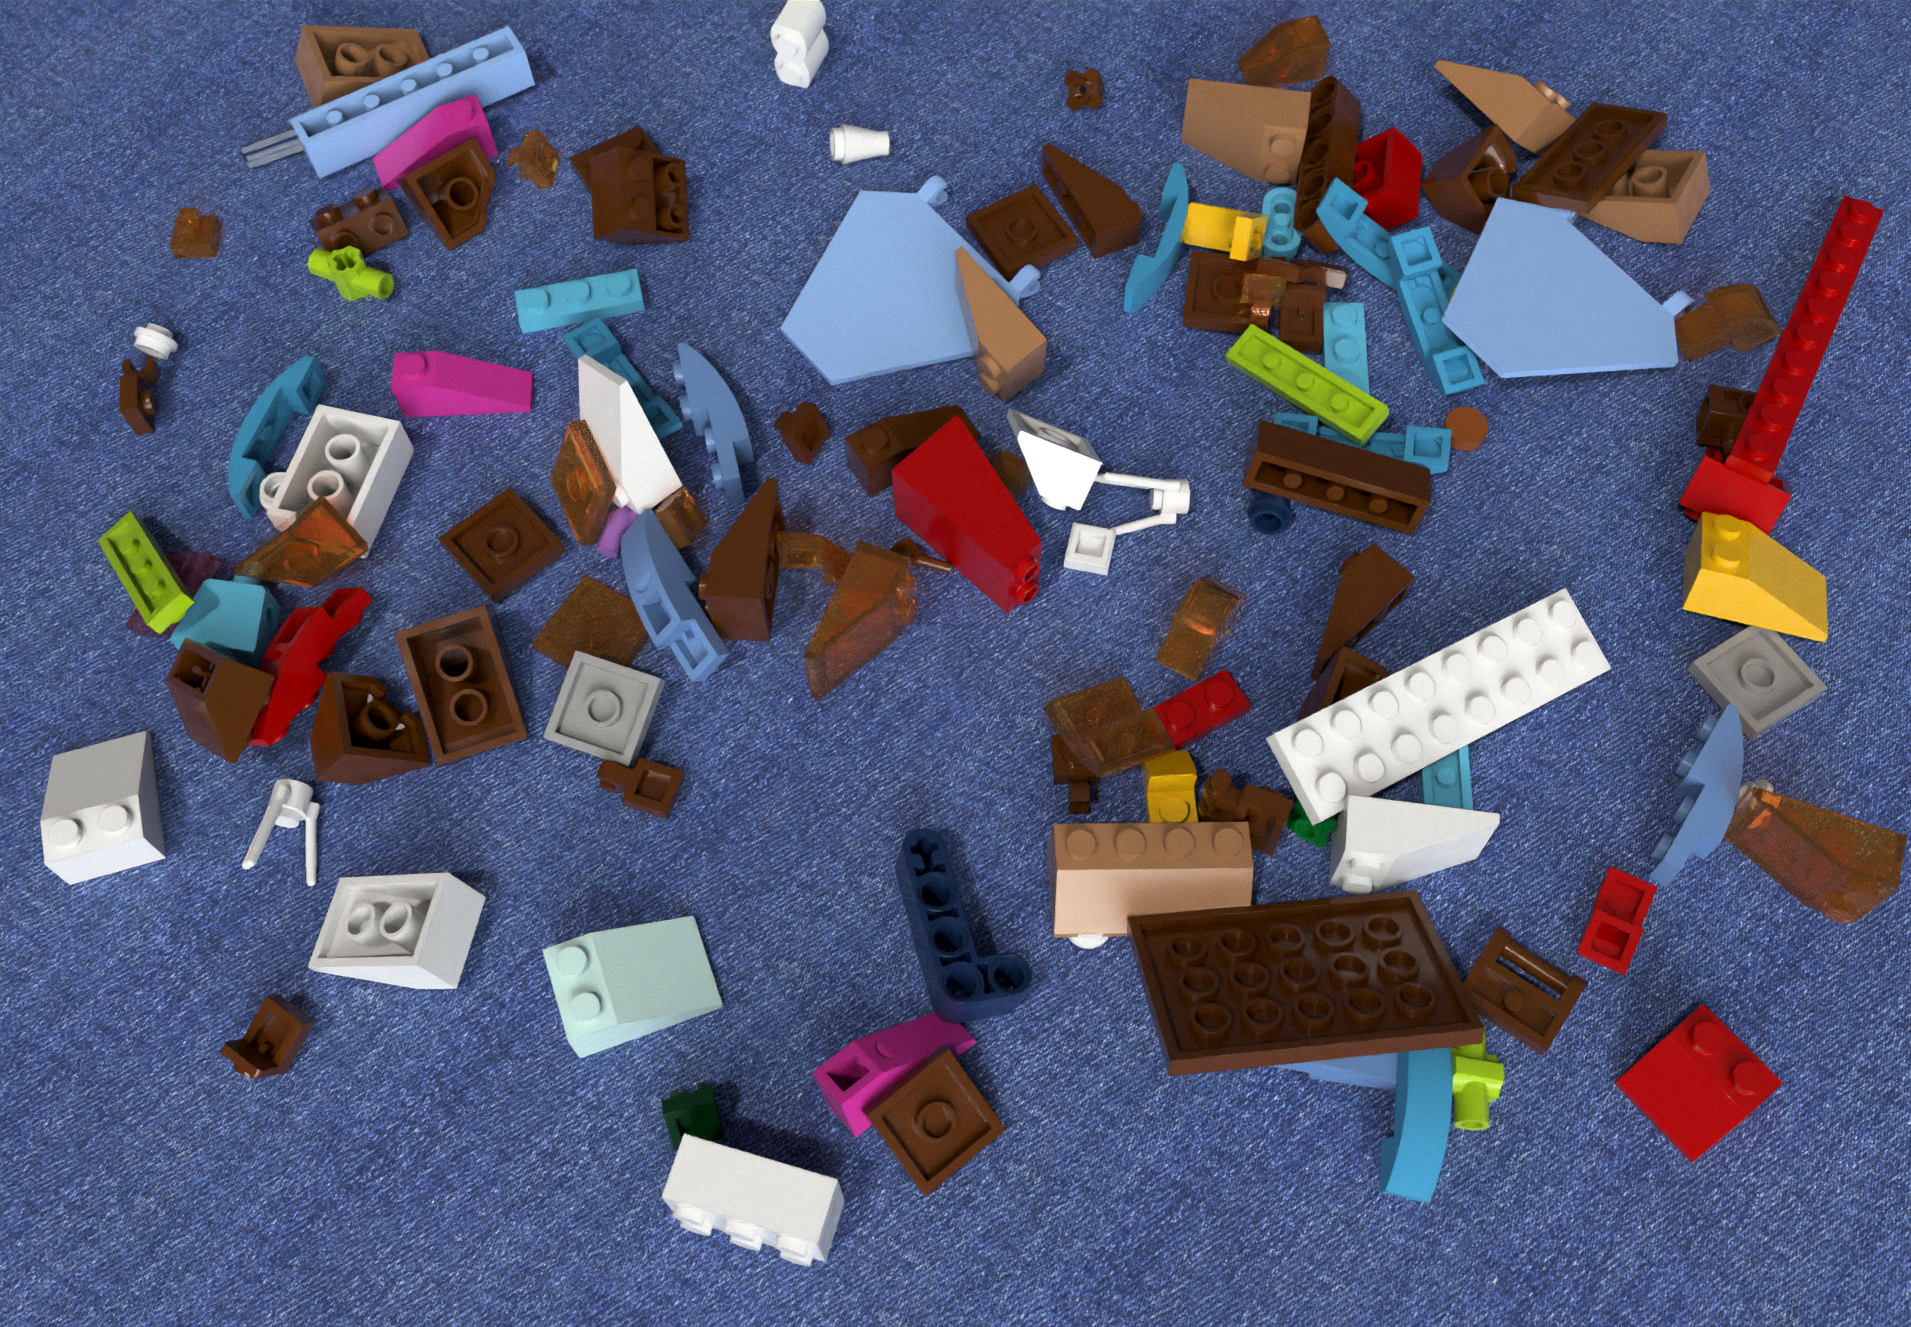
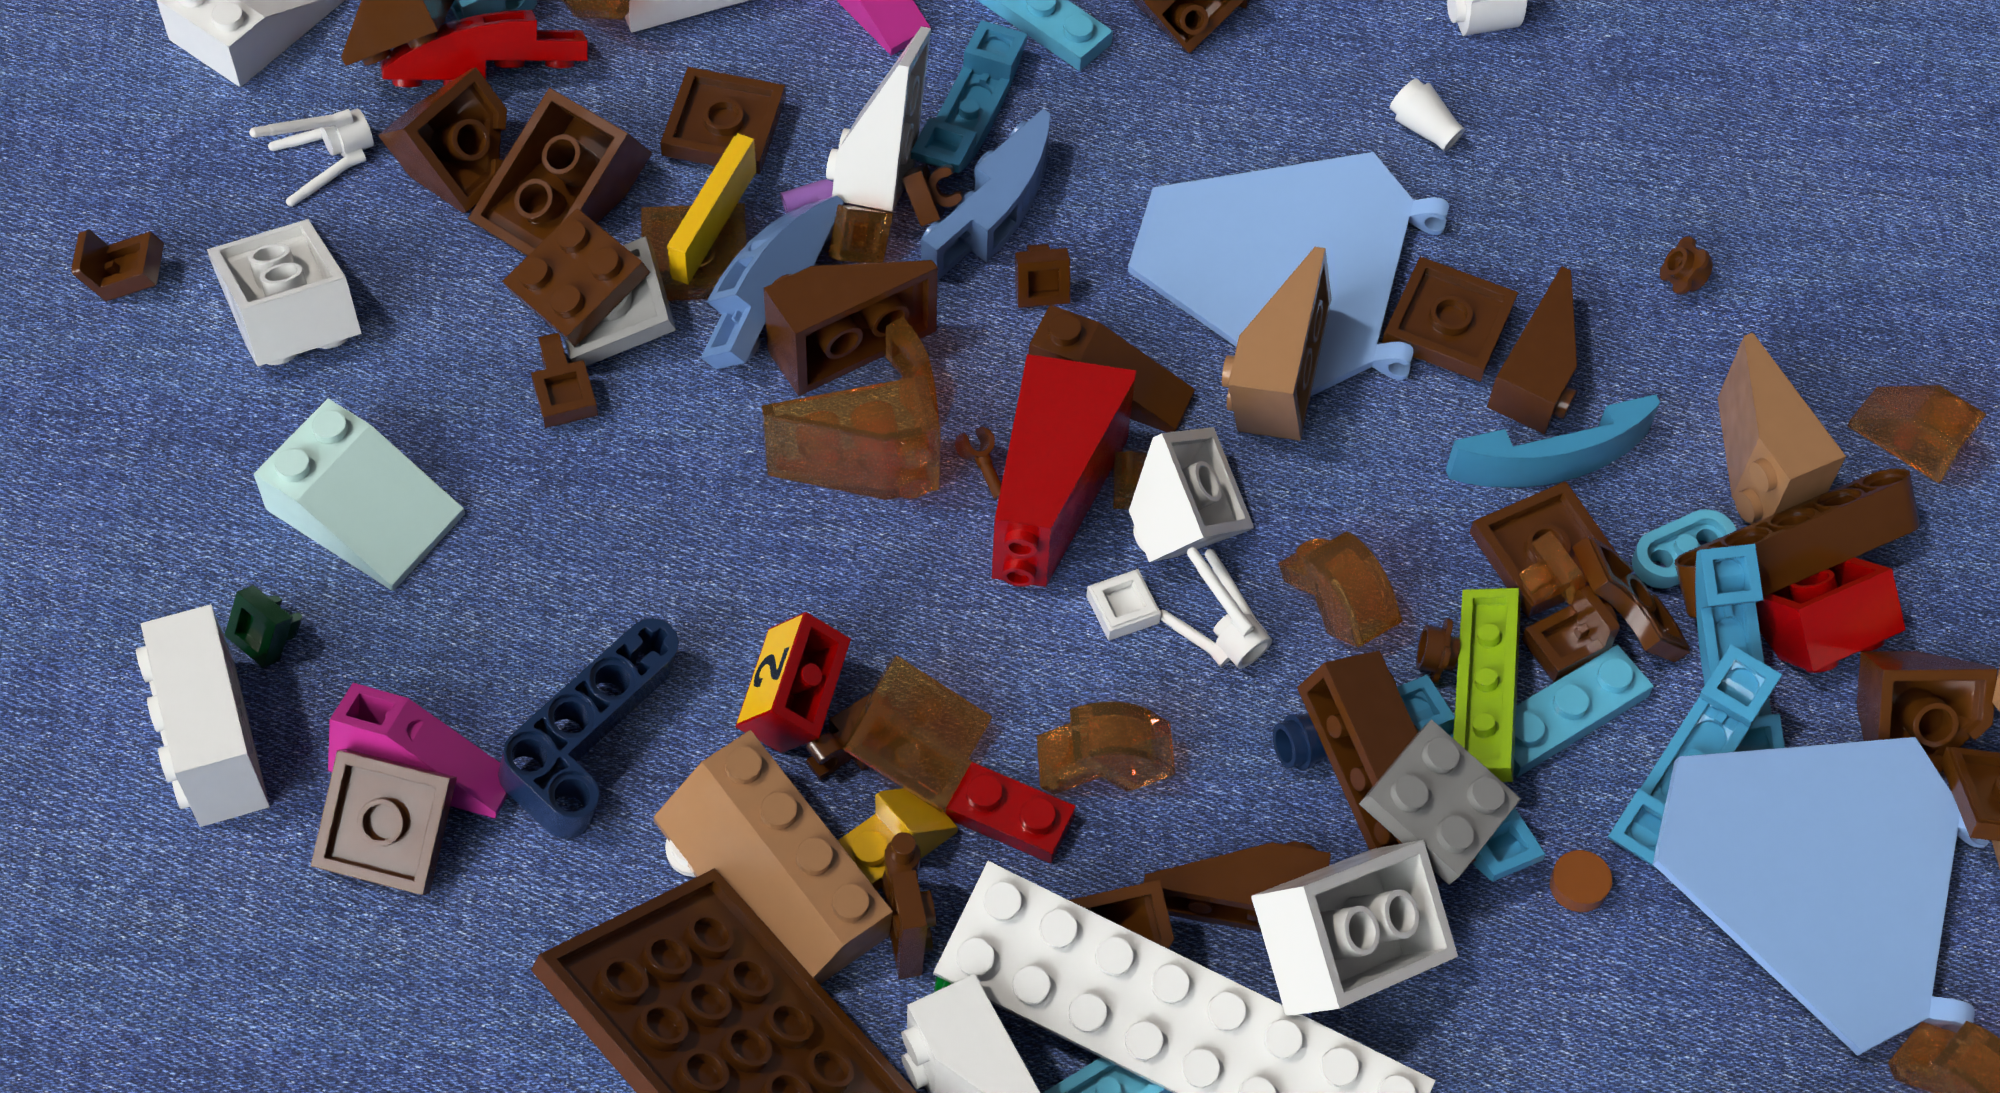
camera: 50 degrees right, 5 degrees down
(567, 718) = (576, 277): none -> reddish brown plate
(582, 482) = (827, 131): clear orange tile -> none
(583, 595) = (711, 208): none -> yellow tile
(687, 458) = (925, 193): none -> reddish brown tile
(1017, 779) = (793, 682): none -> red brick
(1182, 409) = (1347, 586): none -> clear orange brick
(1226, 230) = (1621, 500): yellow bracket -> none
(1258, 396) = (1437, 649): none -> reddish brown plate
(1388, 457) = (1441, 797): none -> light grey plate
(1448, 560) = (1354, 928): none -> white brick

